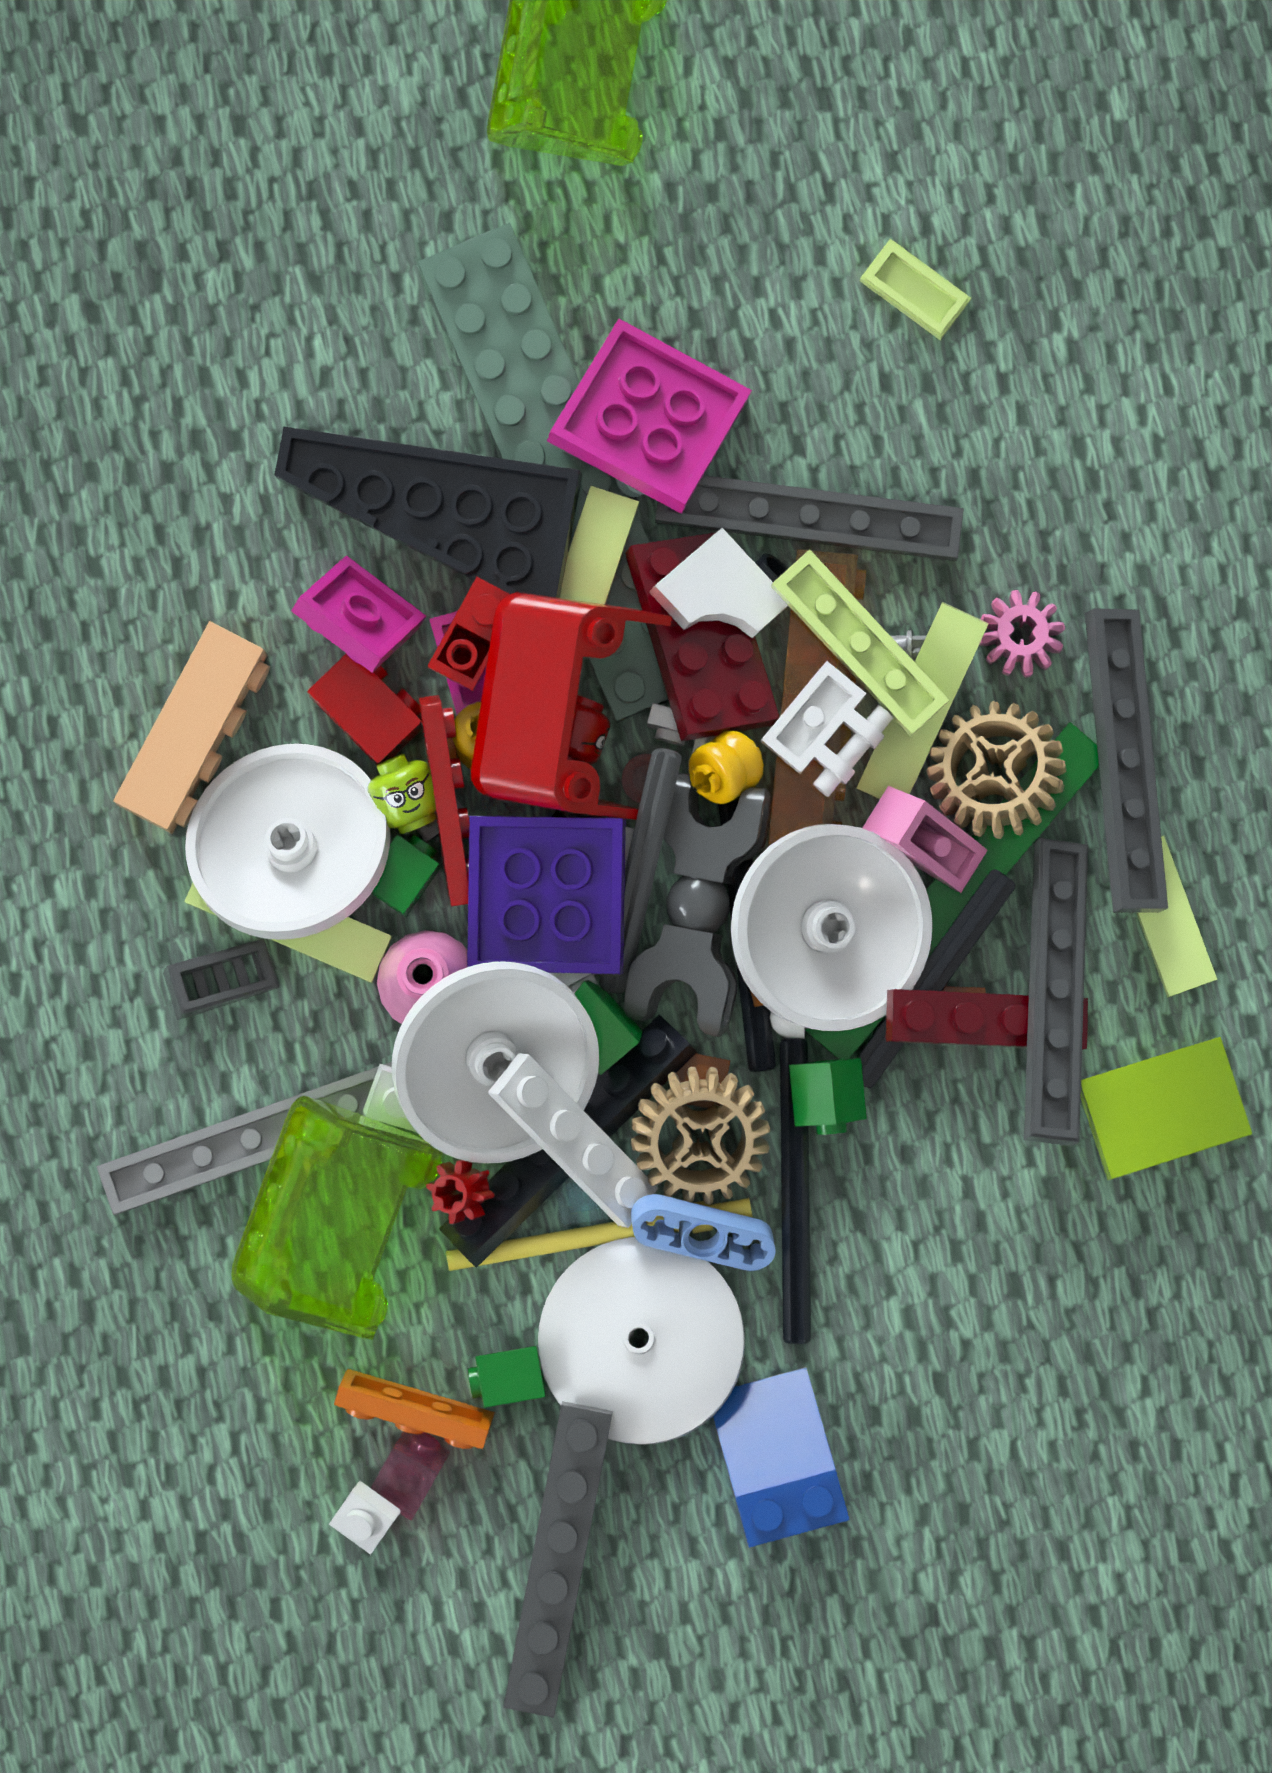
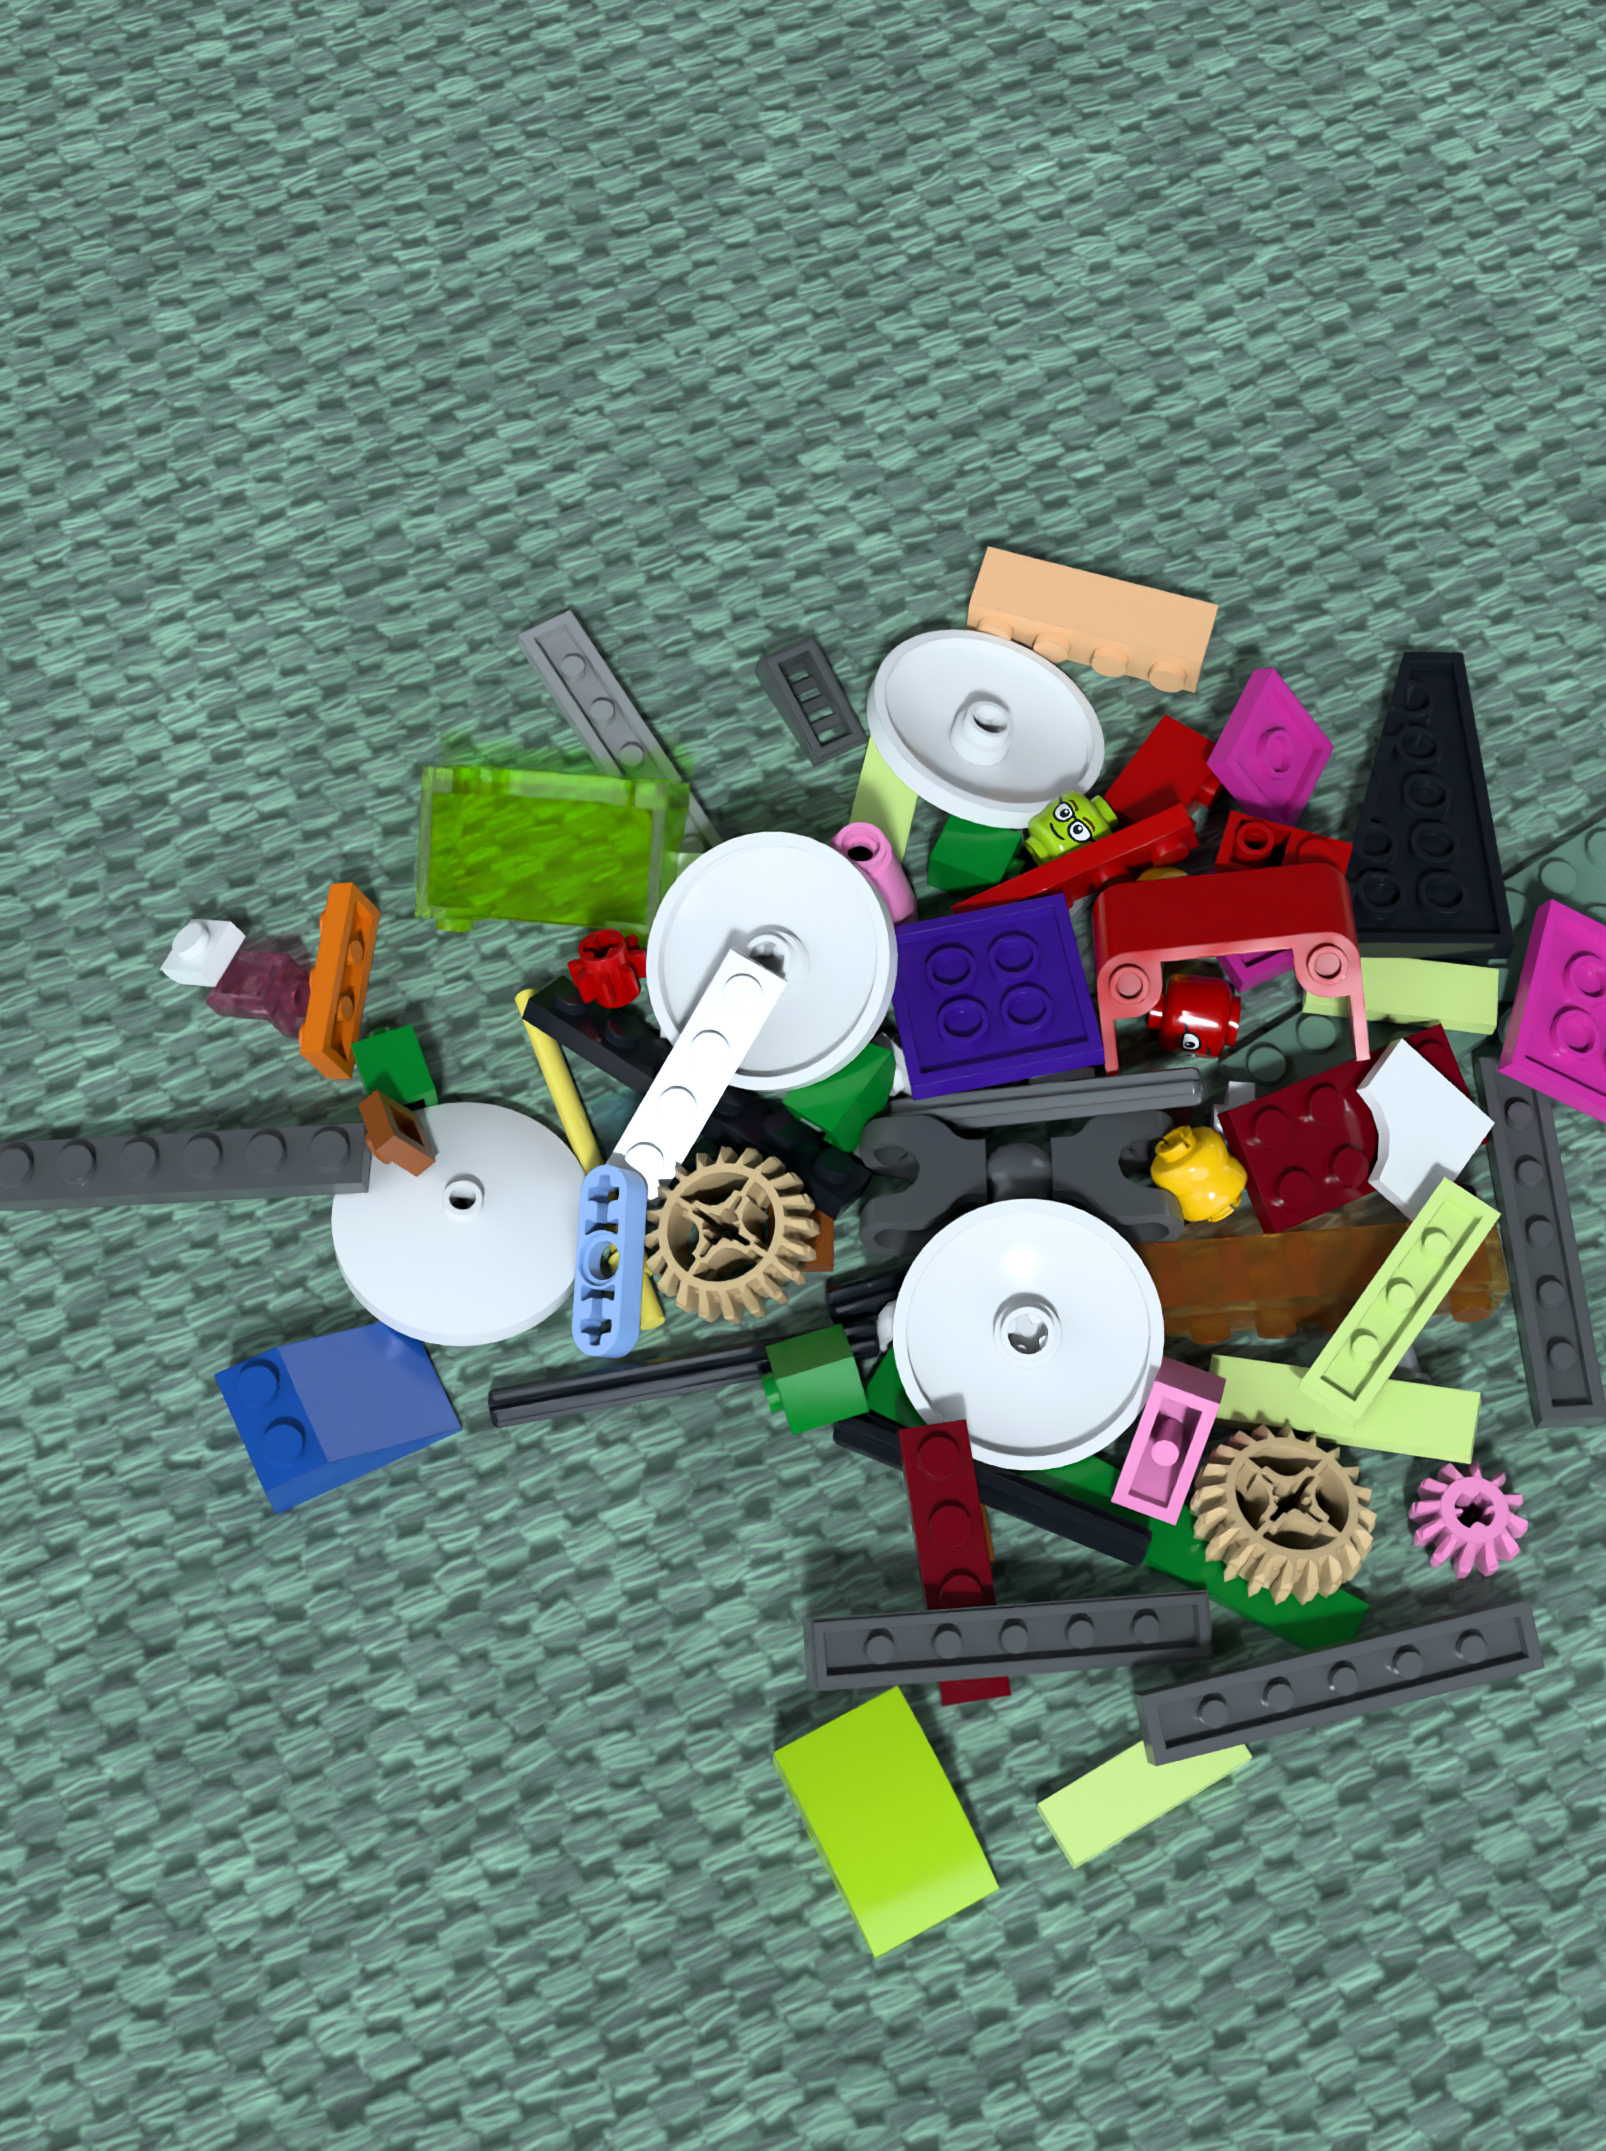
camera: 75 degrees right, 20 degrees down
(577, 1381) = (395, 1133): none -> dark orange plate
(815, 718) = (1287, 1263): white plate -> none

